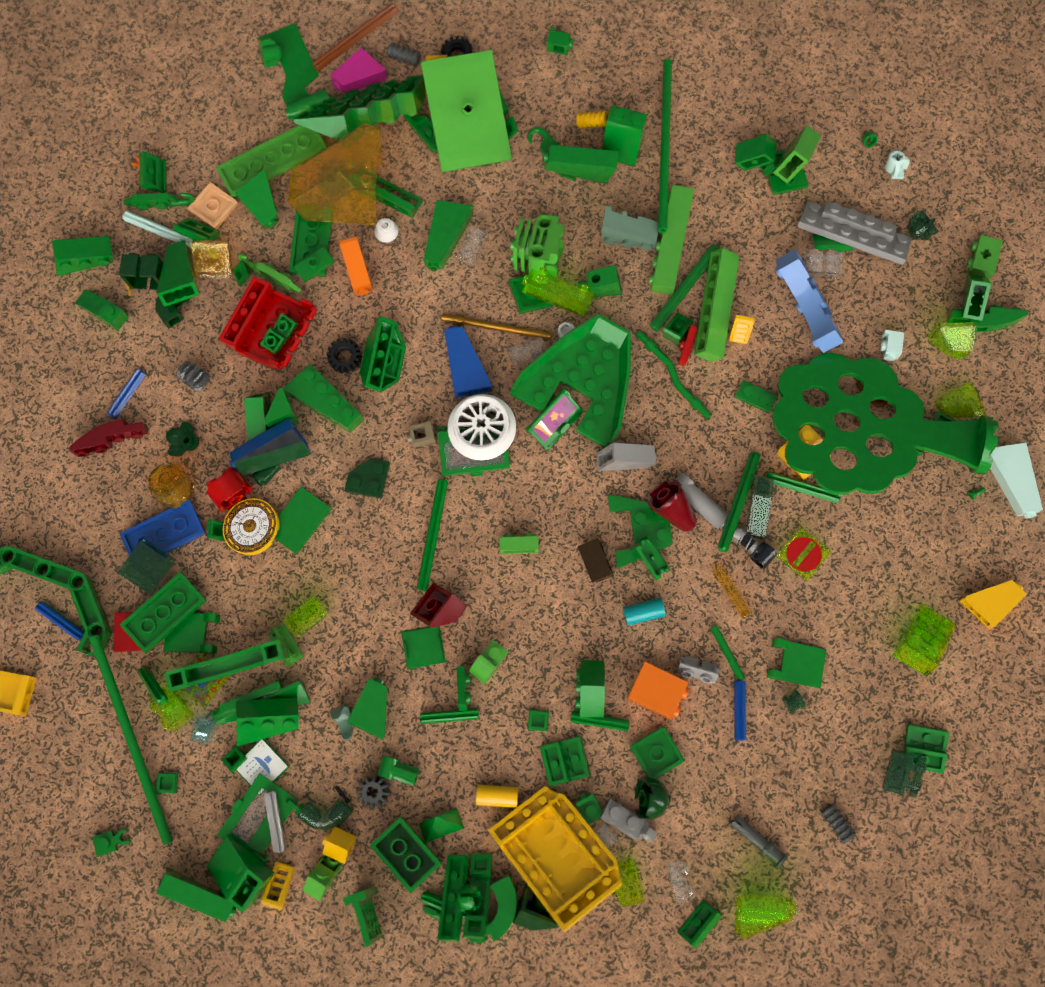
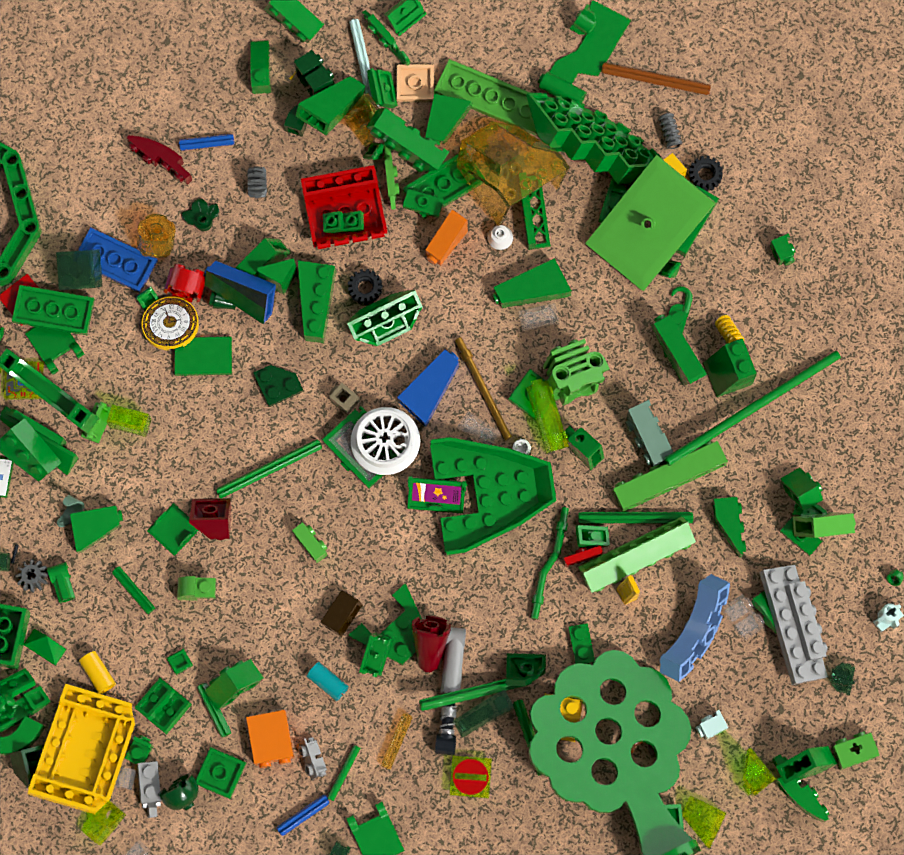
camera: 50 degrees right, 0 degrees up
(255, 237) = (406, 141): none -> green wedge
(358, 72) = (622, 106): dark pink slope -> none
(463, 680) = (155, 588): green plate -> none
(625, 457) = (447, 575): light grey slope -> none
(739, 222) = (728, 520): none -> green slope
(746, 451) = (524, 668): none -> dark green plate

